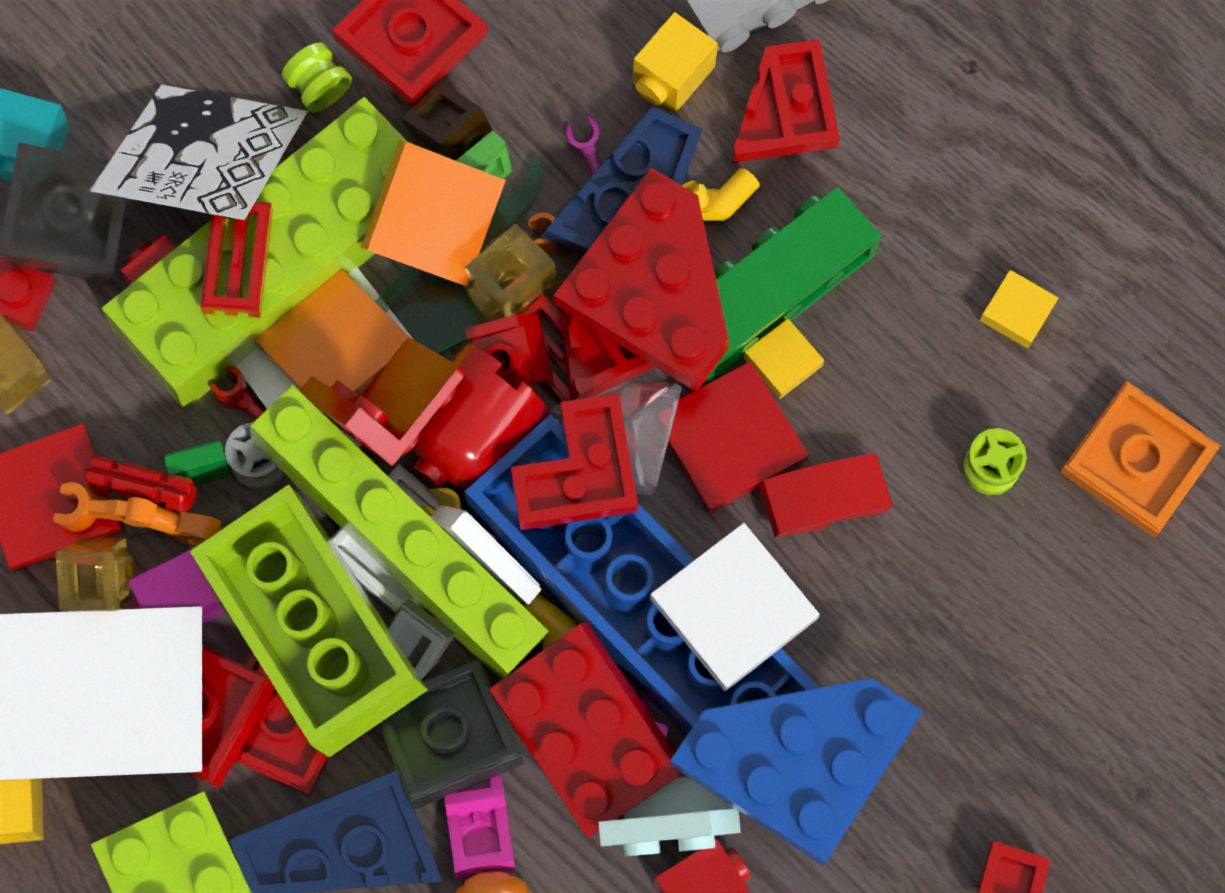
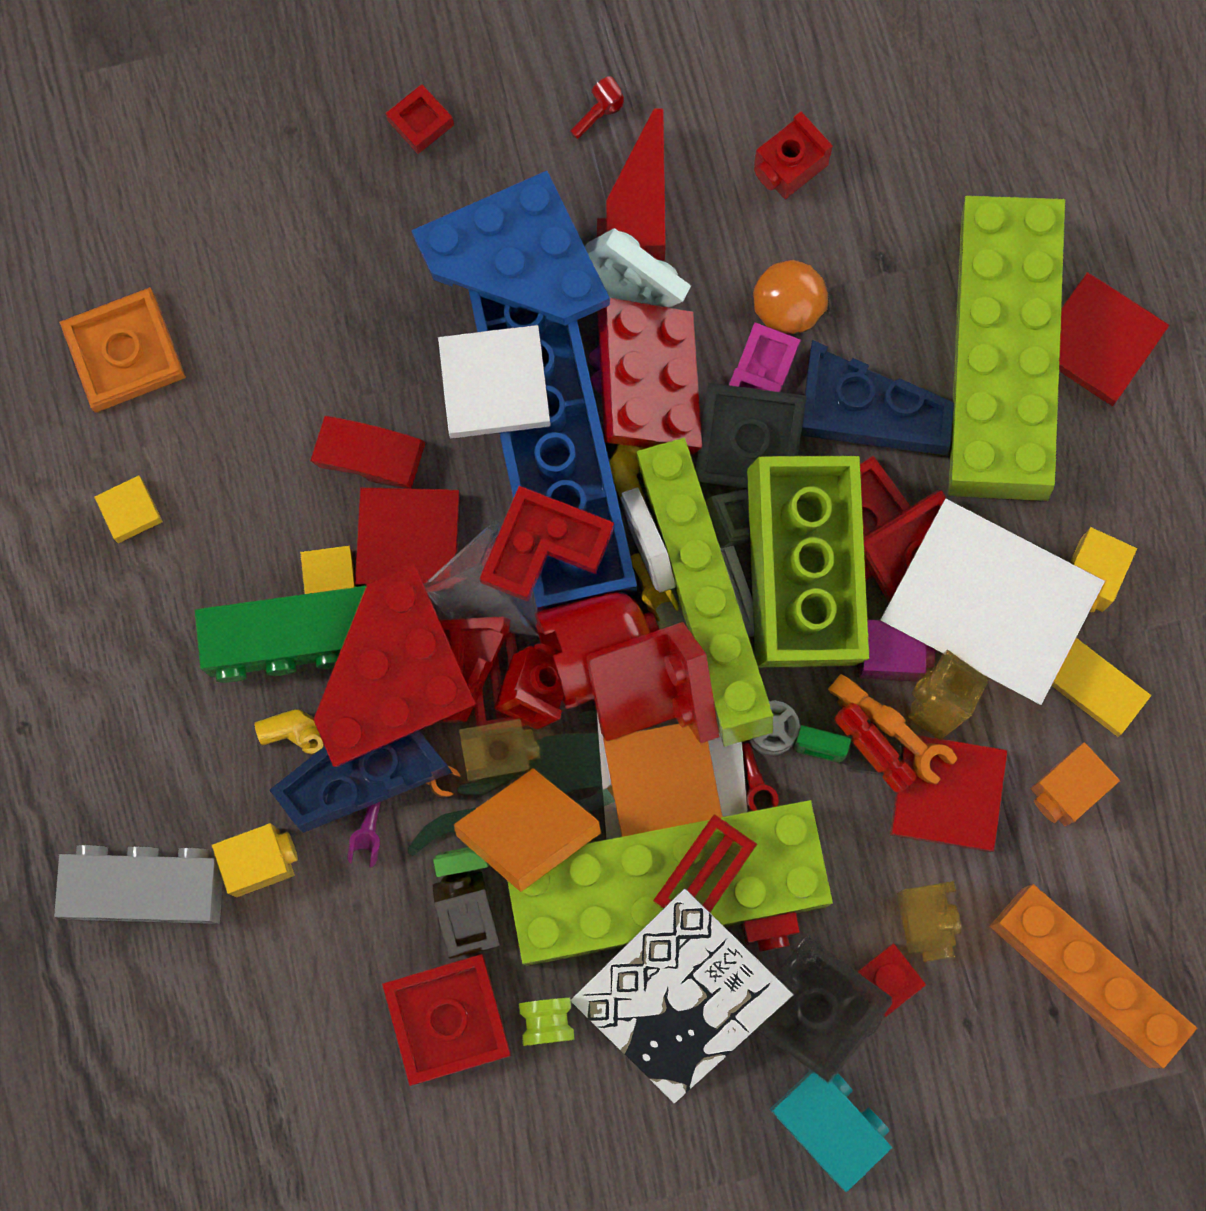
camera: 140 degrees left, 5 degrees up
(788, 106) = (188, 773): red wing -> none
(1000, 451) = (225, 393): lime wheel -> none

